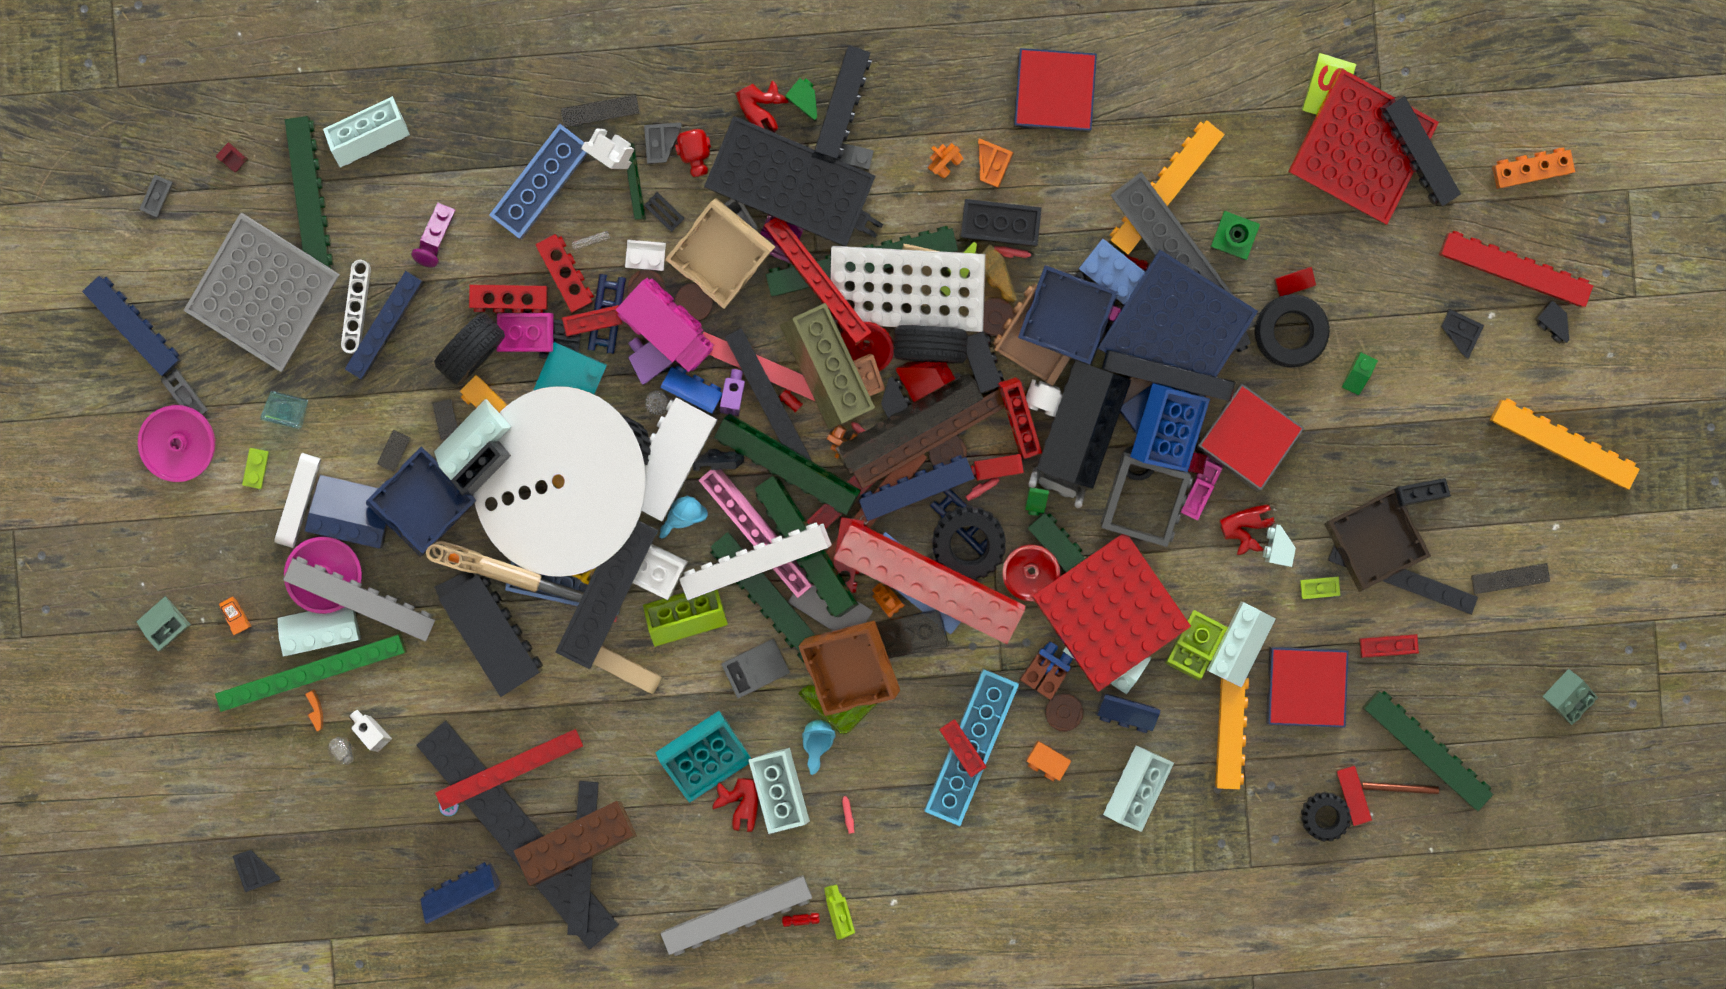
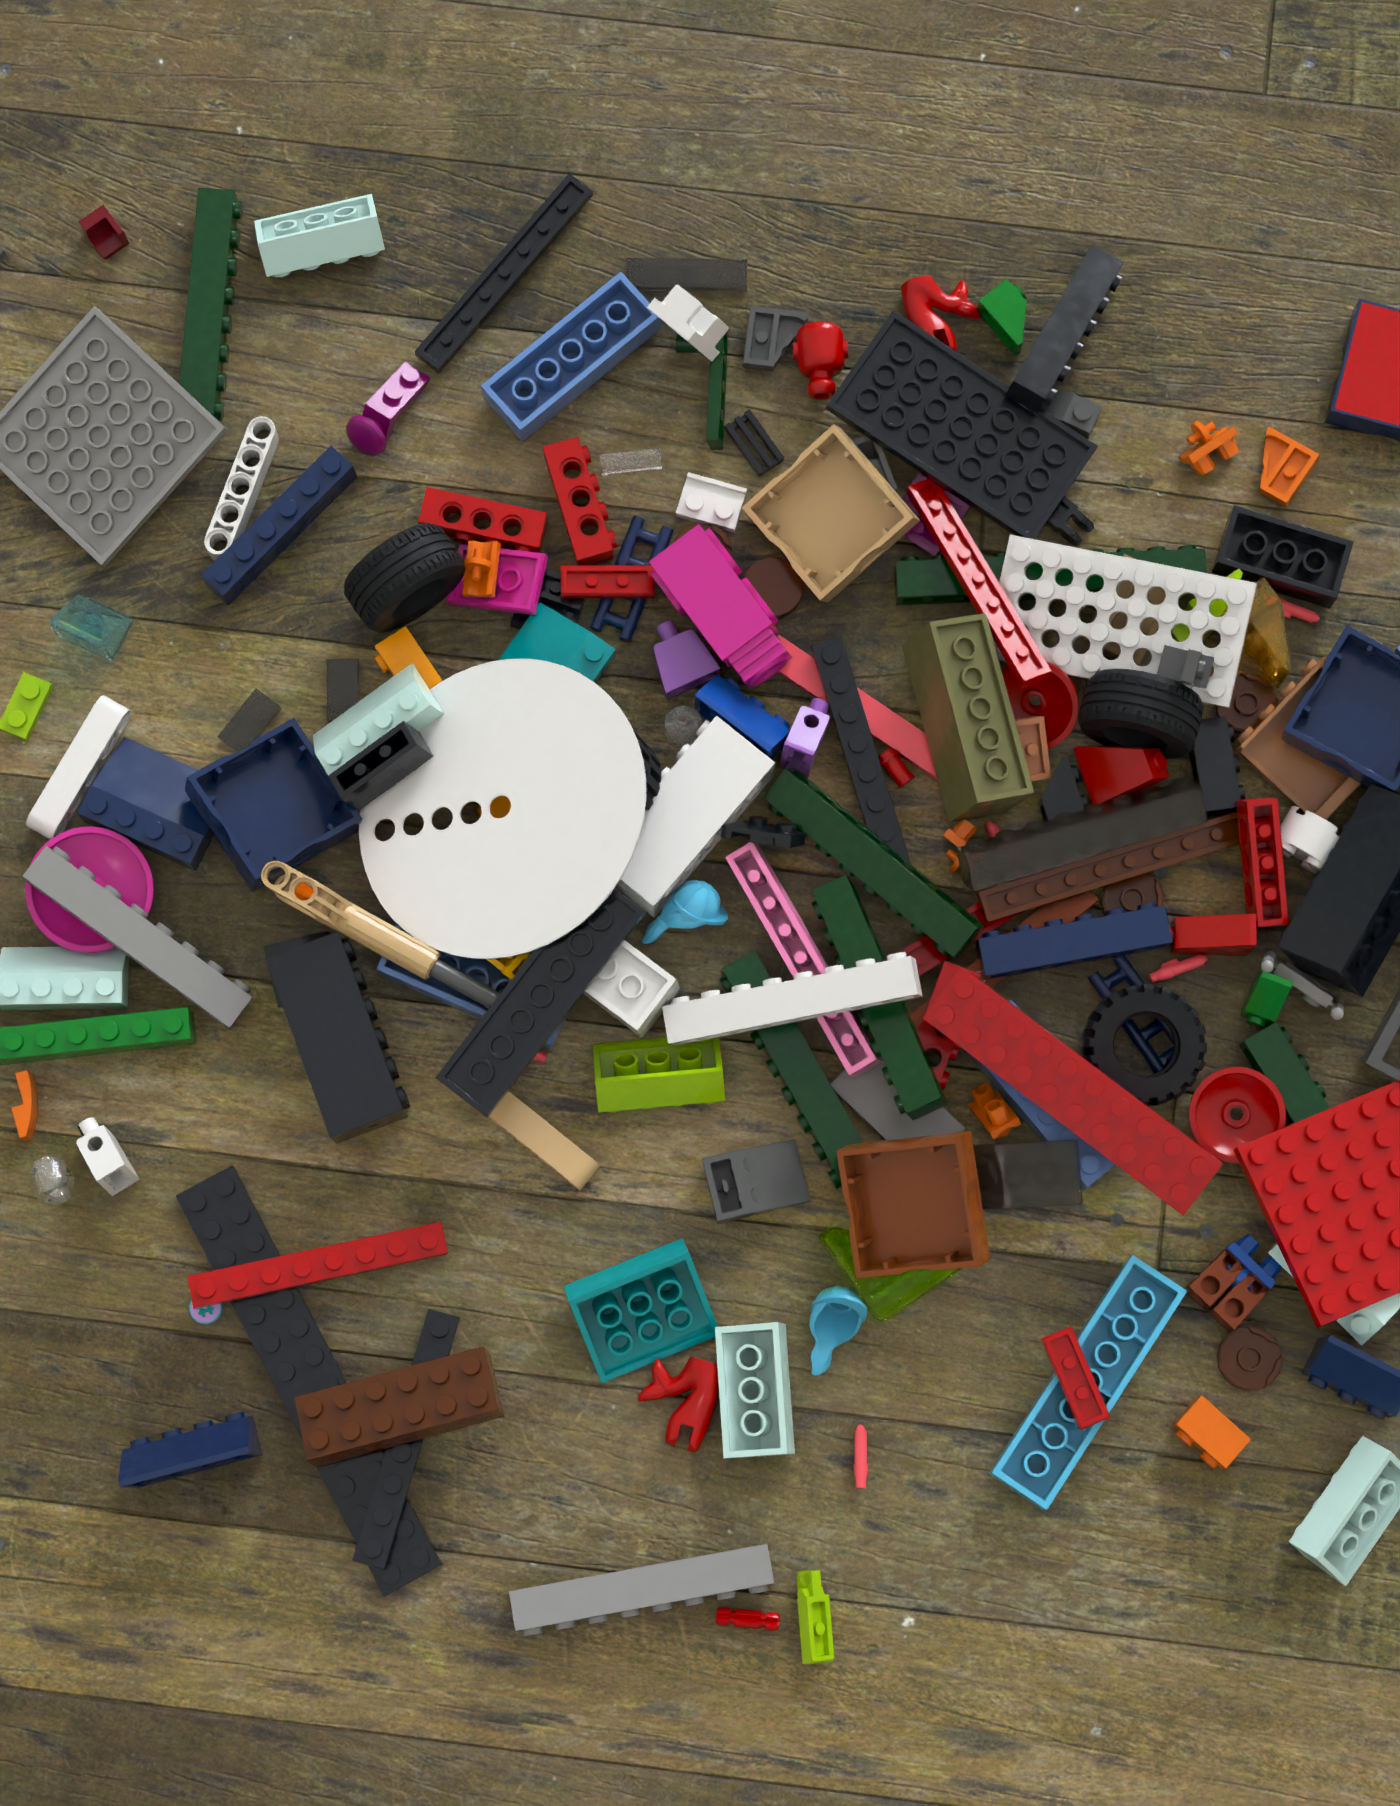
camera: 10 degrees right, 10 degrees down
(487, 133) = (504, 273): none -> black plate
(514, 331) = (481, 569): none -> orange hips
(950, 316) = (1185, 666): none -> dark grey brick

